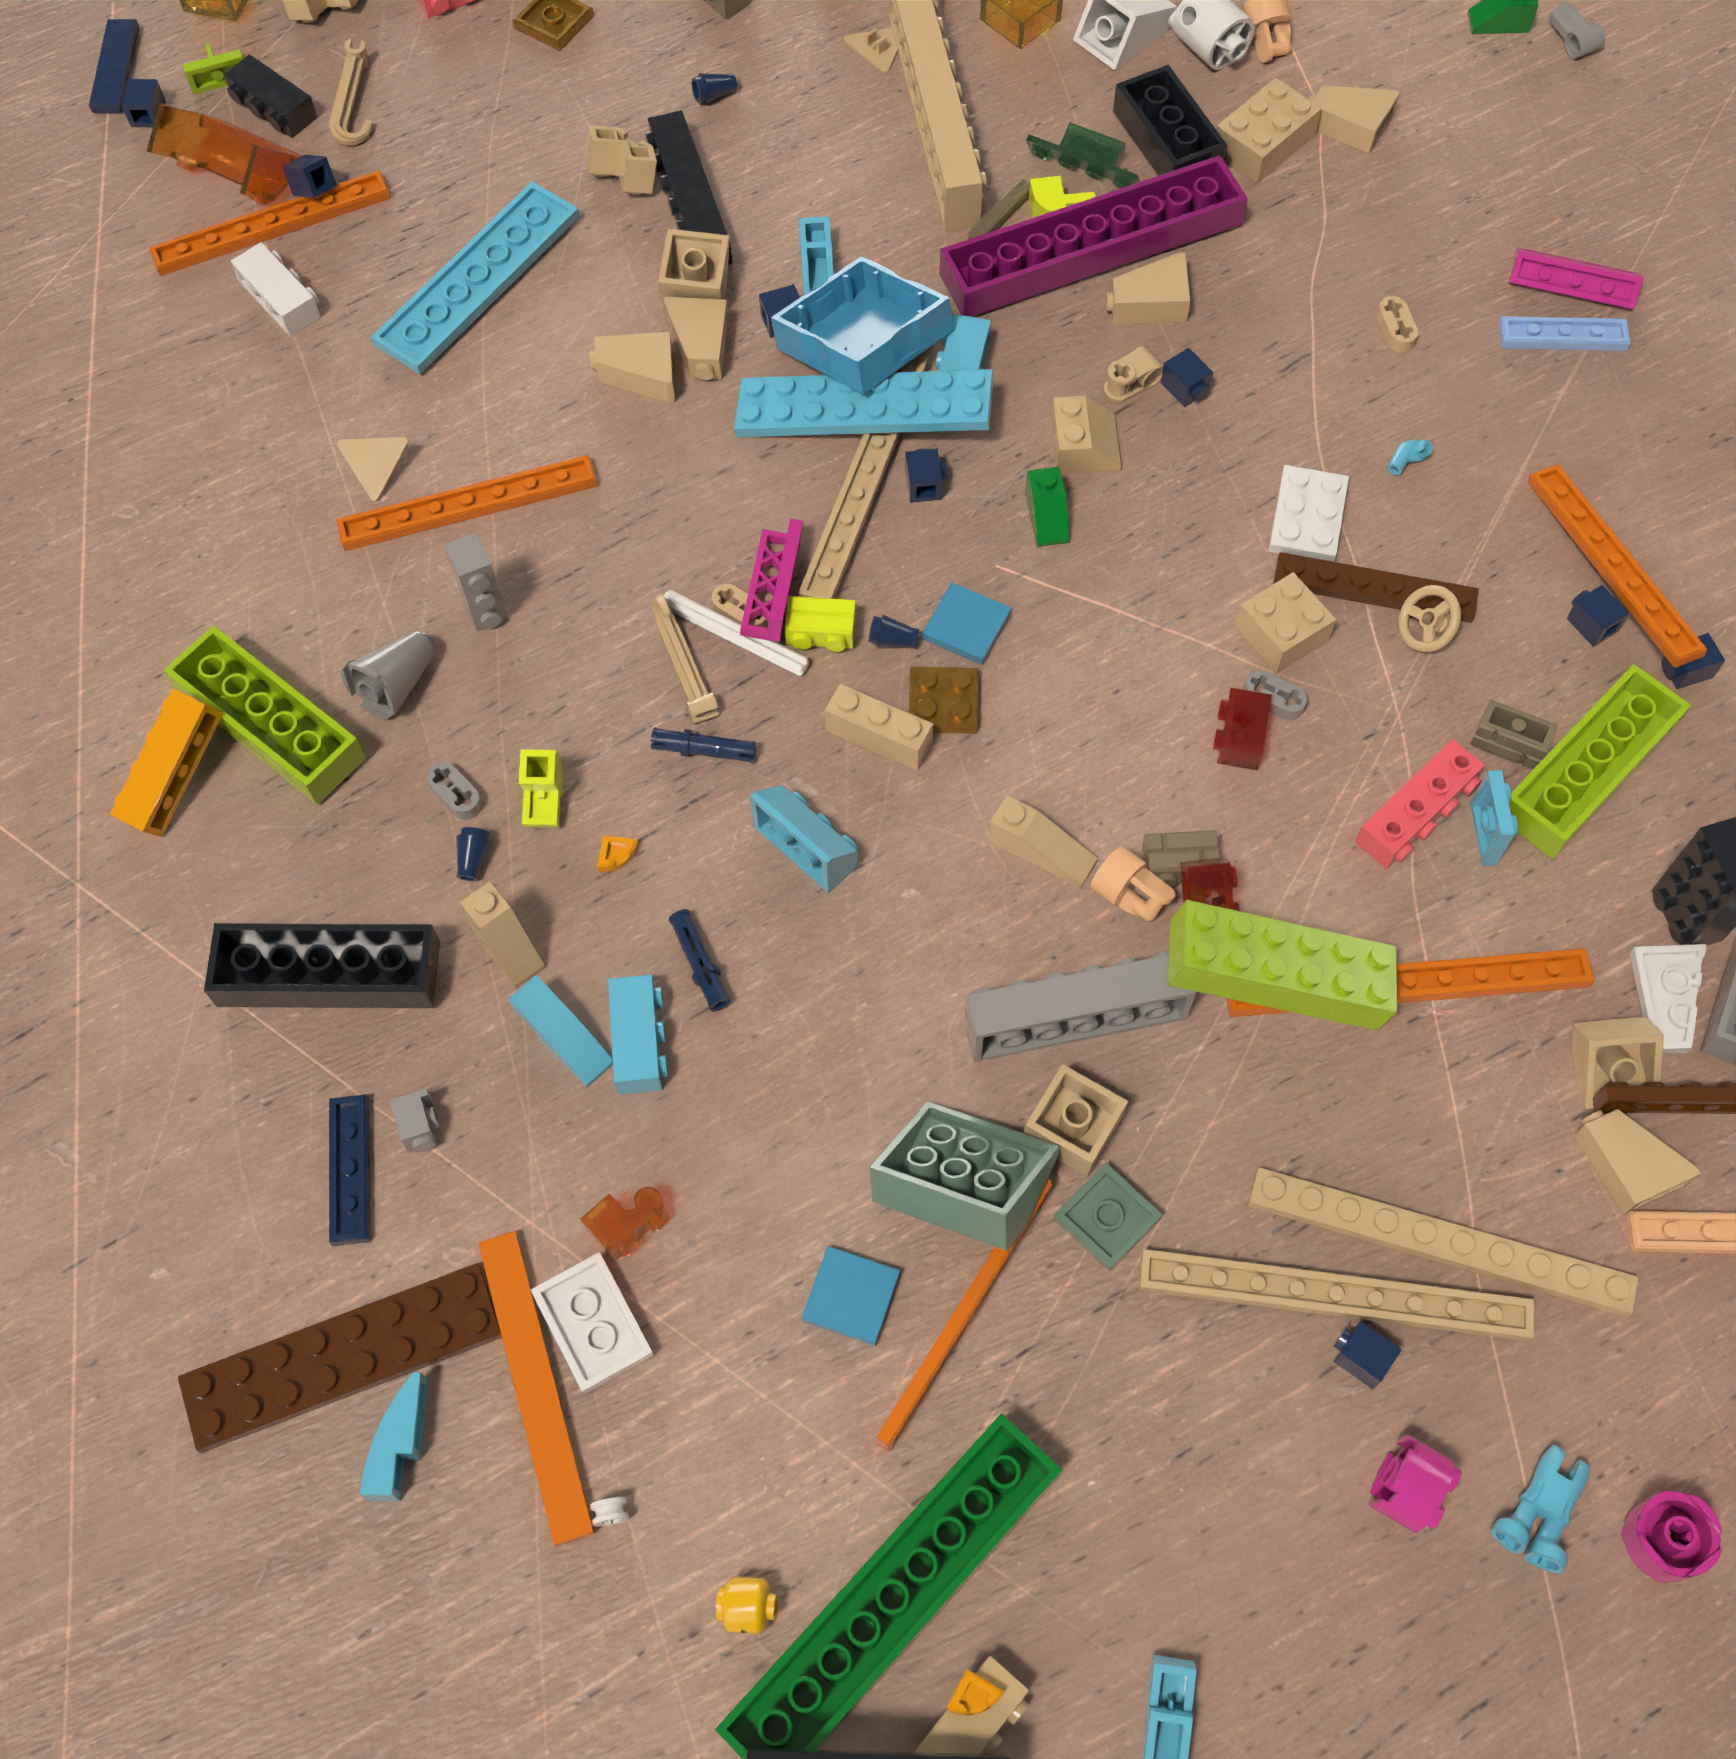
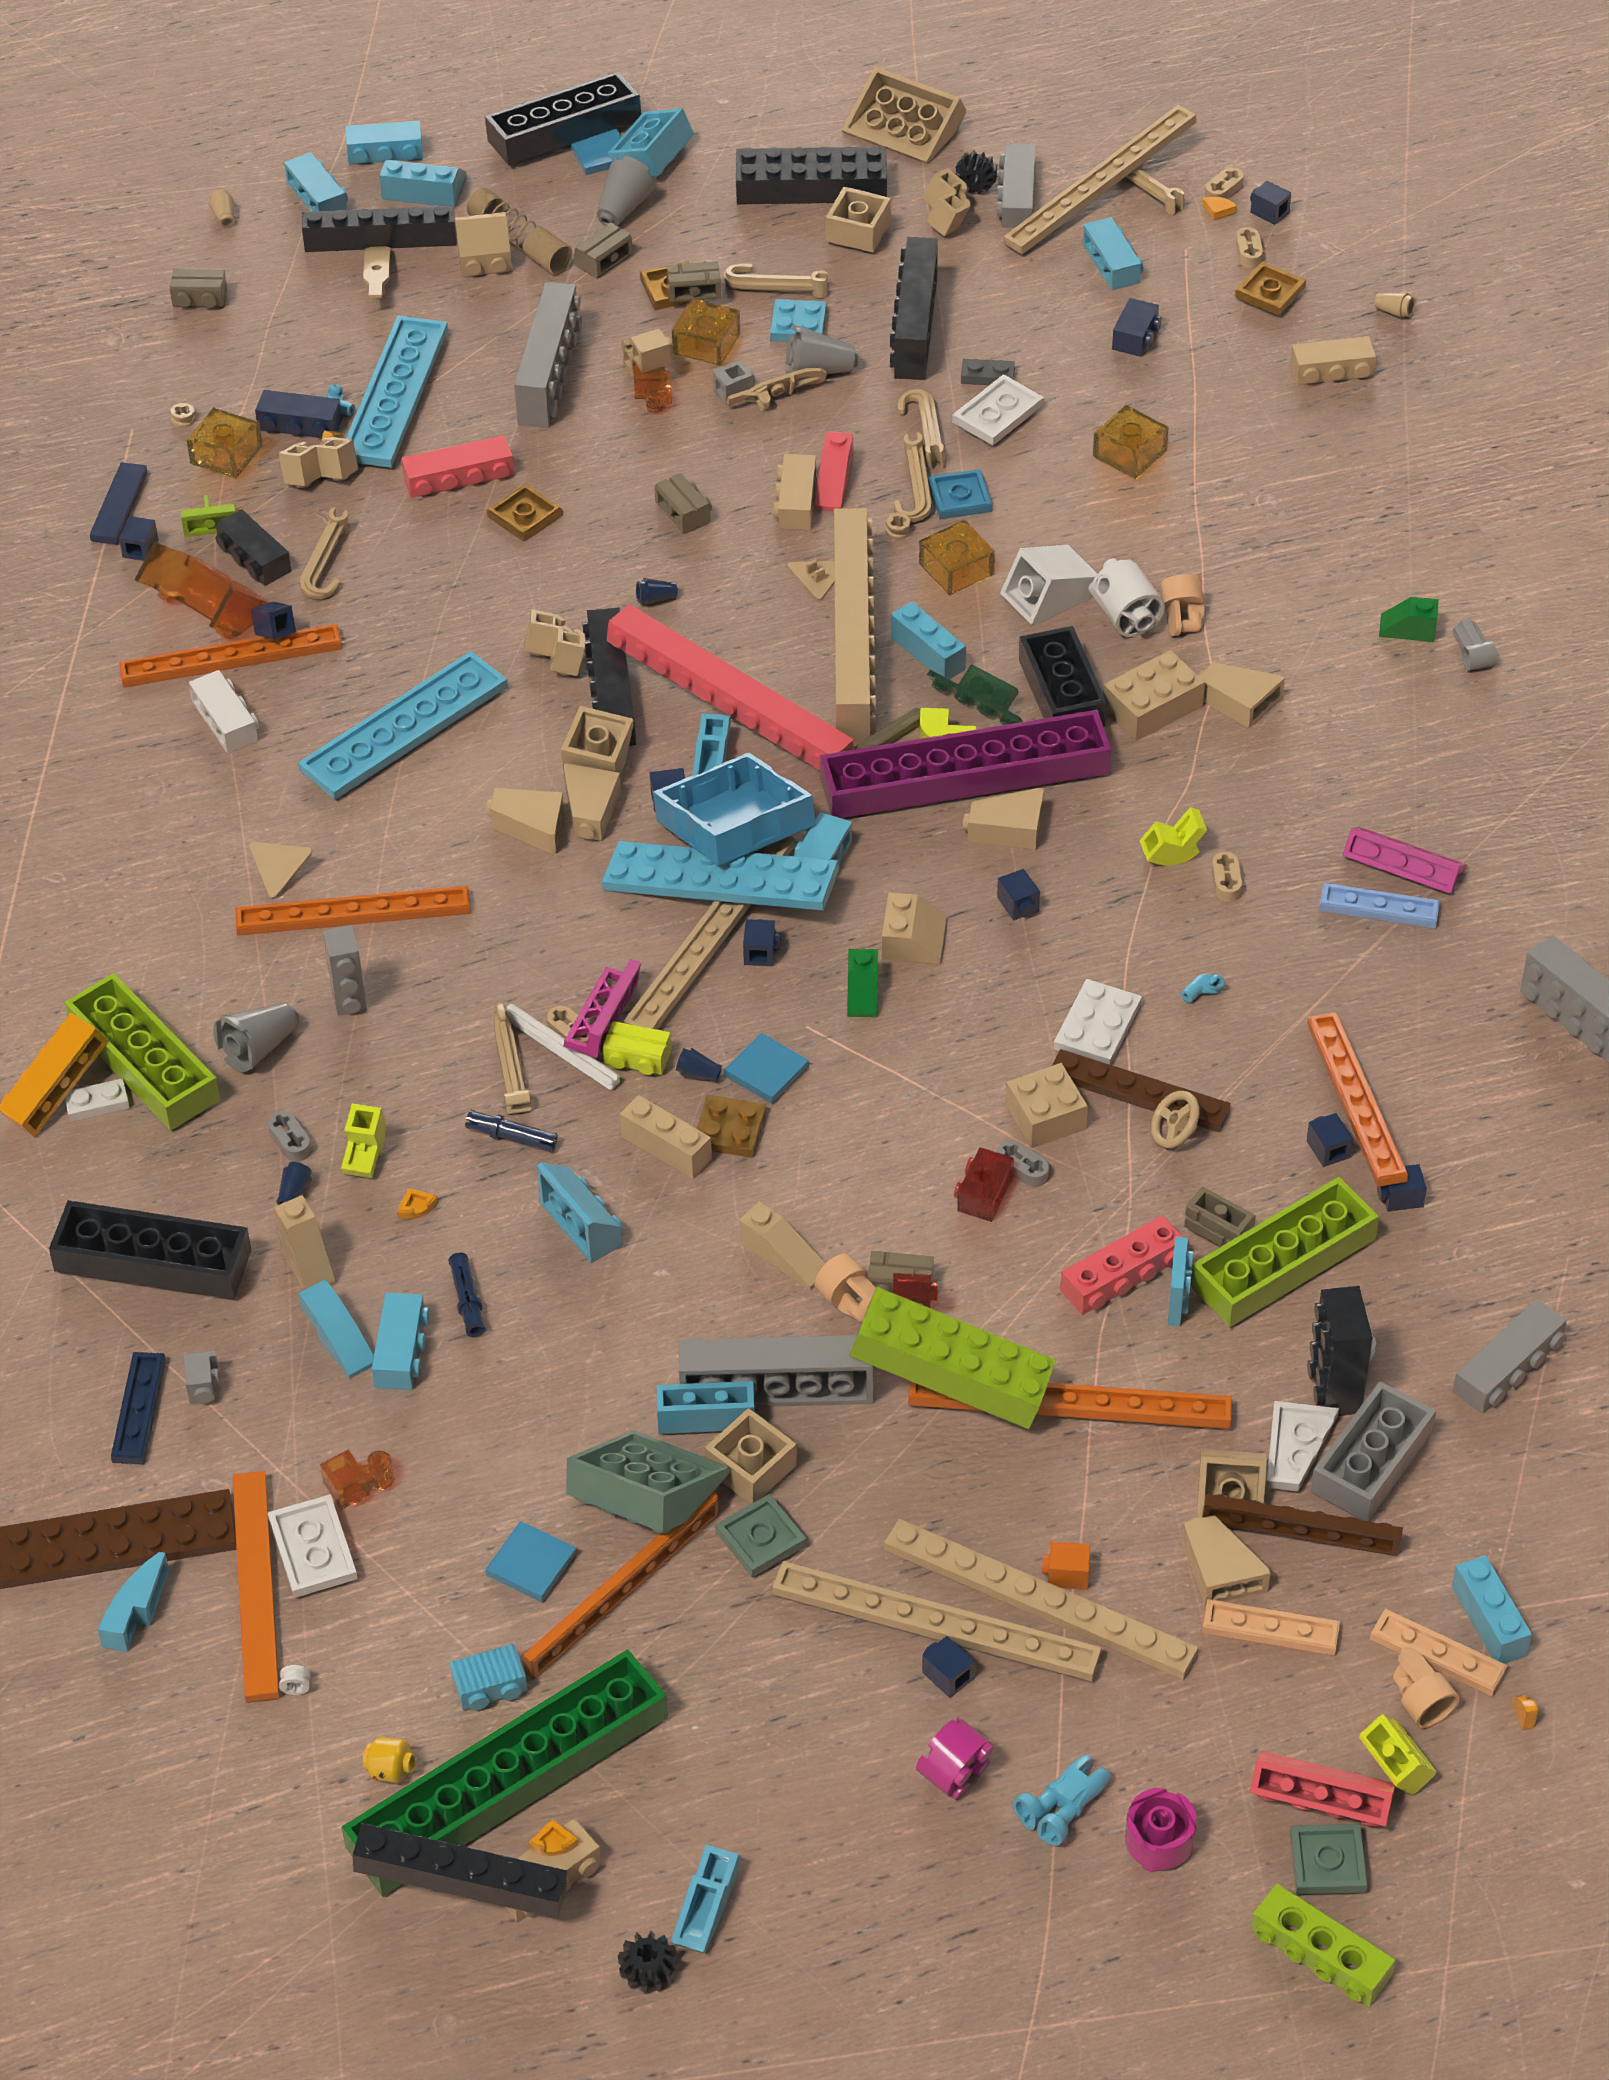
camera: 10 degrees right, 15 degrees down
(224, 780) = (96, 1100): none -> white plate
(818, 185) = (725, 687): none -> coral brick
(839, 1468) = (488, 1677): none -> medium azure brick
(1007, 1064) = (702, 1406): none -> medium azure brick
(1015, 102) = (928, 641): none -> medium azure brick
(1132, 375) = (972, 884): tan piece -> none
(1336, 295) = (1176, 843): none -> neon yellow brick
(1465, 1196) = (1067, 1565): none -> orange brick

